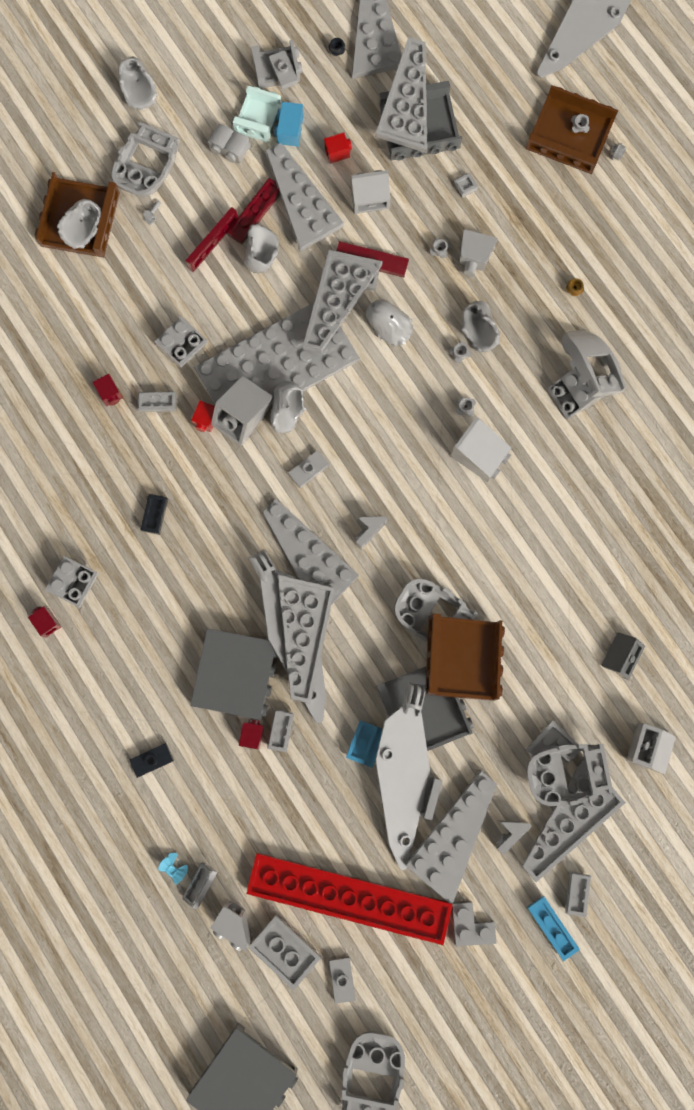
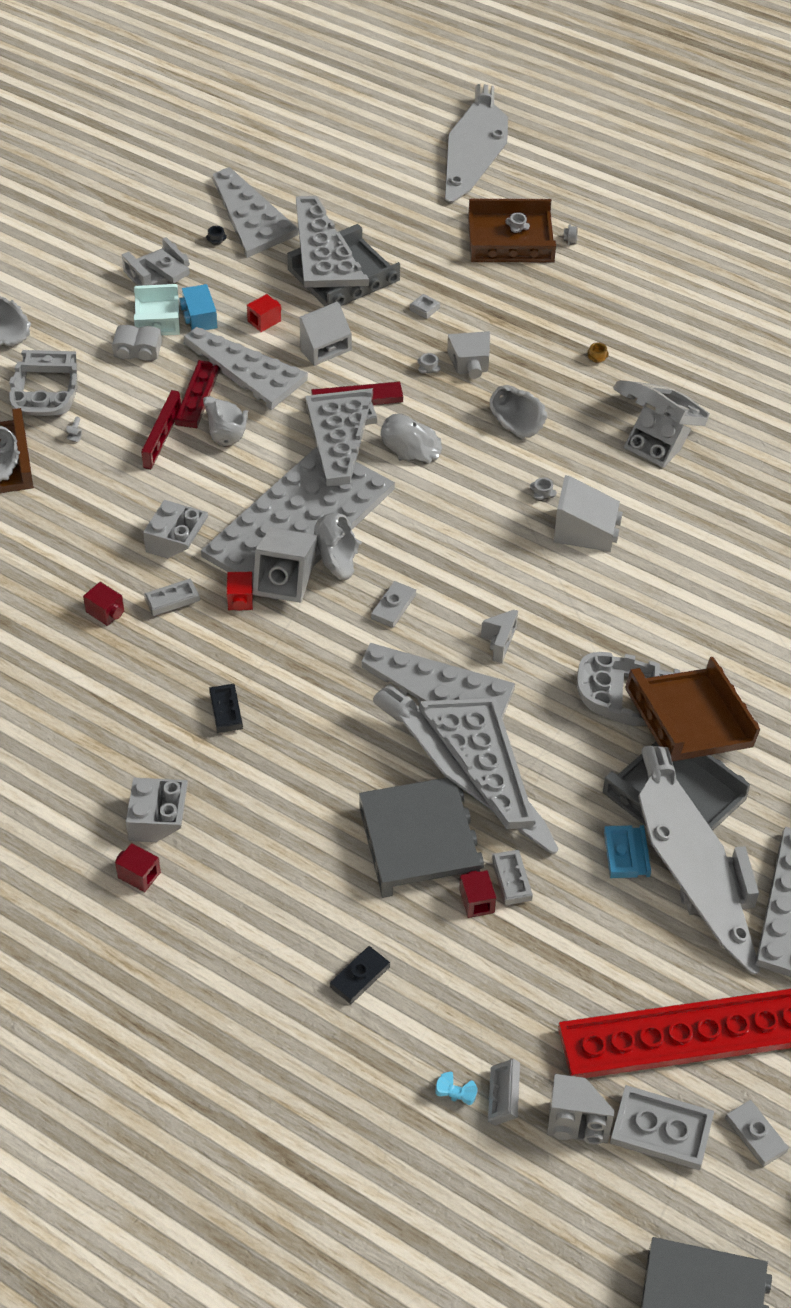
camera: 25 degrees left, 30 degrees down
(461, 346) = (507, 443): light grey plate -> none

